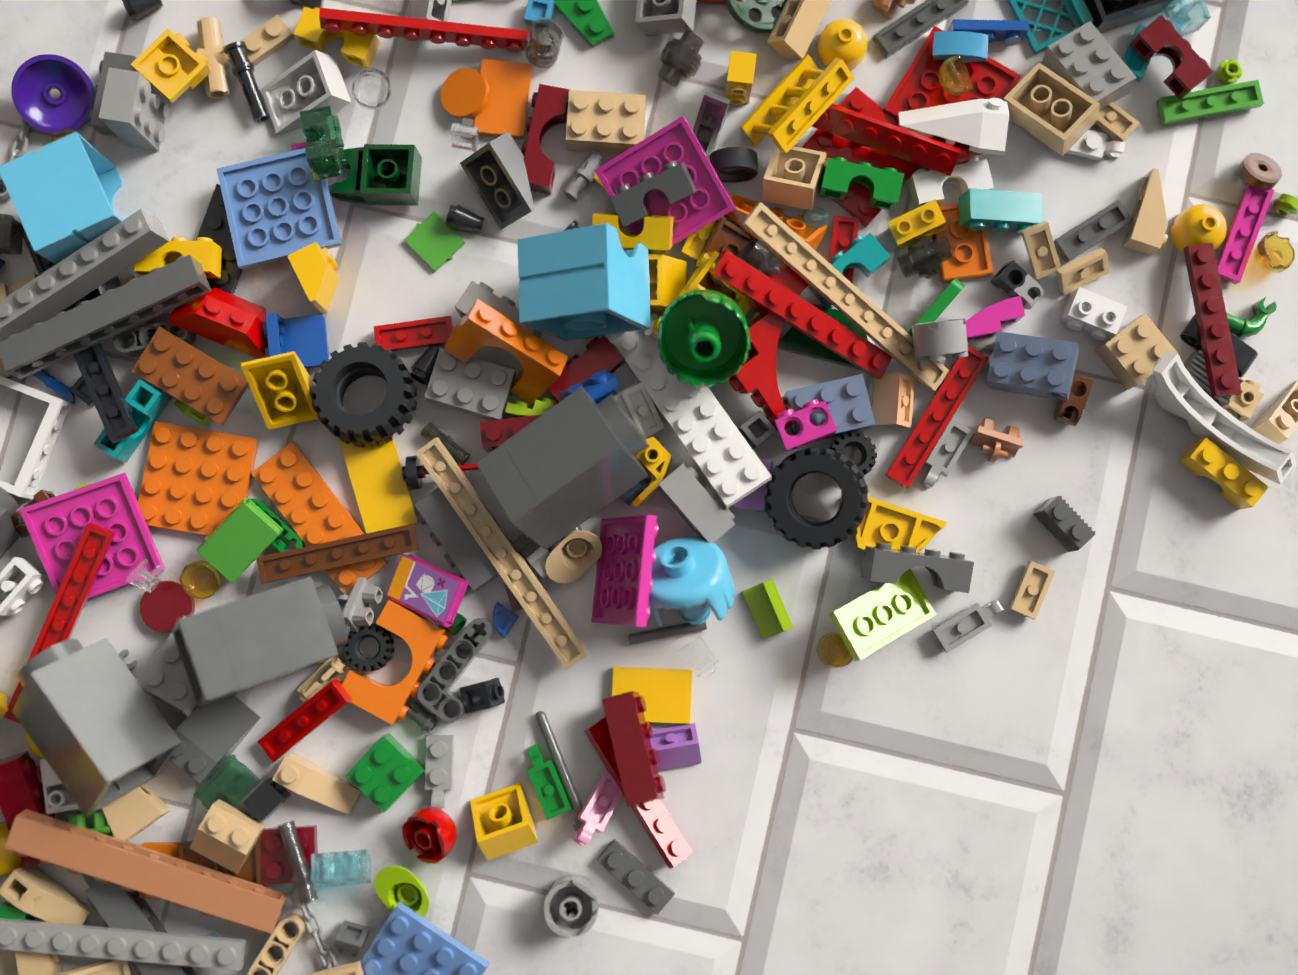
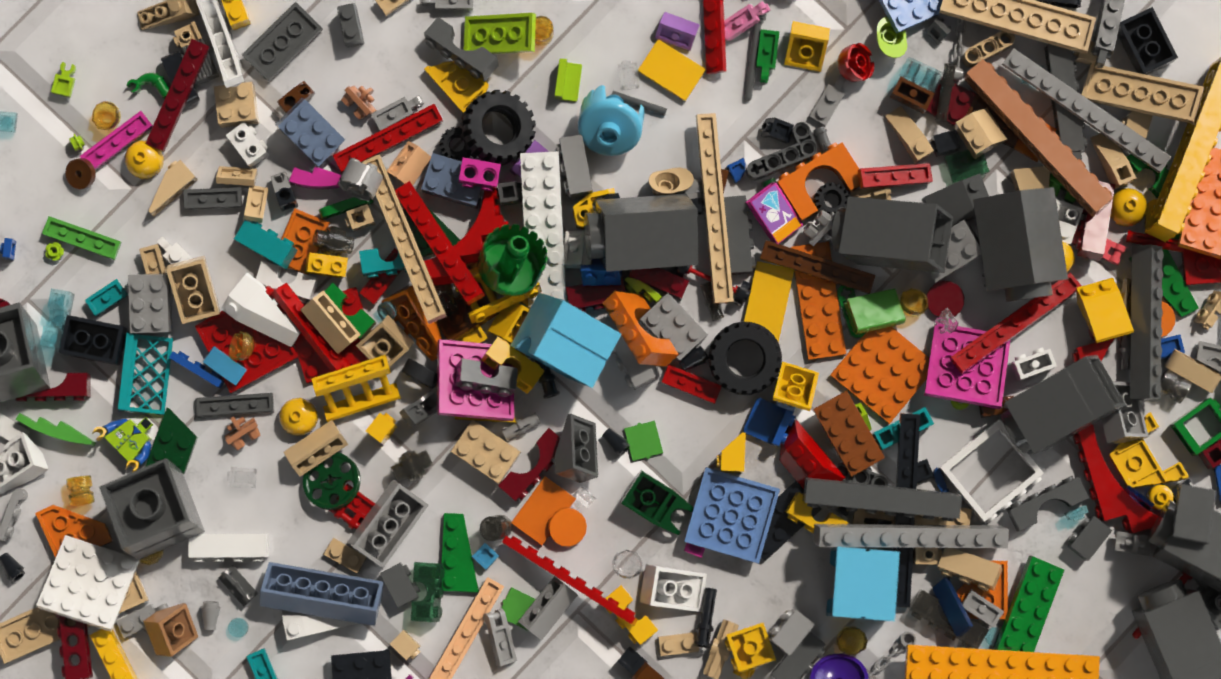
camera: 150 degrees left, 0 degrees up
(323, 143) = (676, 553): clear green arch -> none
(338, 834) = (912, 95): none -> reddish brown brick
(385, 772) = (862, 116): green brick -> none
(624, 571) = (645, 149): dark pink plate -> none
(633, 748) = (701, 41): dark red brick -> none
(872, 153) = (330, 322): none -> tan brick
(906, 314) = (363, 211): none -> tan brick
(1130, 458) = (282, 41): none -> dark grey plate
(1163, 40) = (87, 263): dark red arch -> none
(1282, 43) = (8, 248): none -> blue plate

